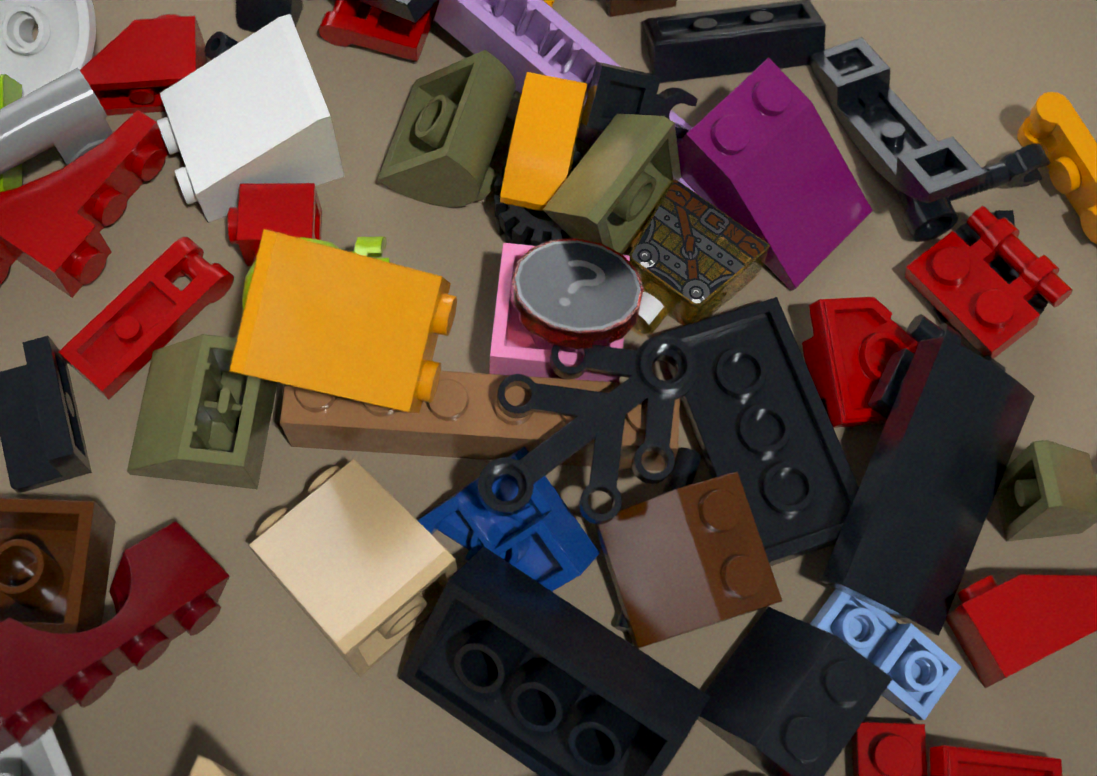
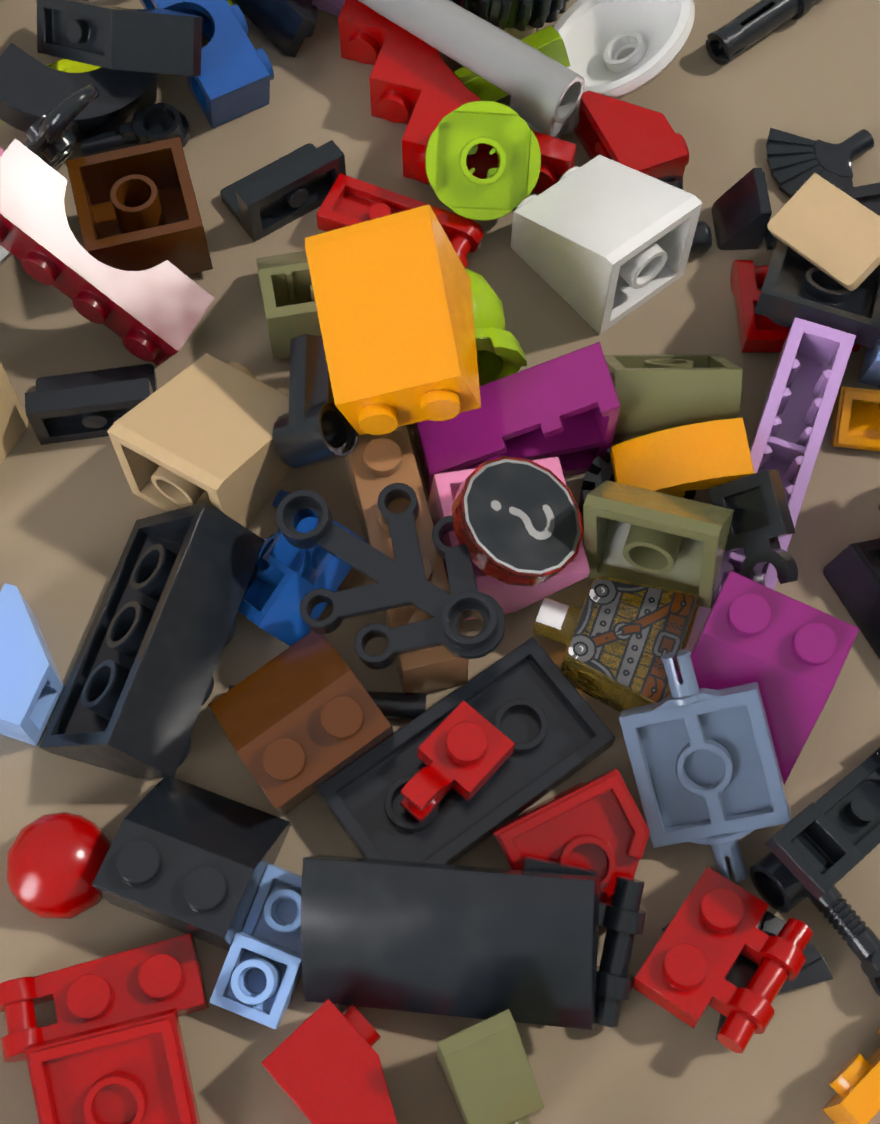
camera: 75 degrees right, 5 degrees down
(91, 214) = (459, 135): none -> lime plate
(238, 687) = (86, 402): none -> black panel
(275, 207) = (525, 287): red brick -> none
(389, 448) = (314, 426): none -> black piece
(450, 237) = (538, 413): none -> magenta wedge
(767, 427) = (457, 756): none -> red plate
(831, 228) = (705, 765): none -> sand blue plate

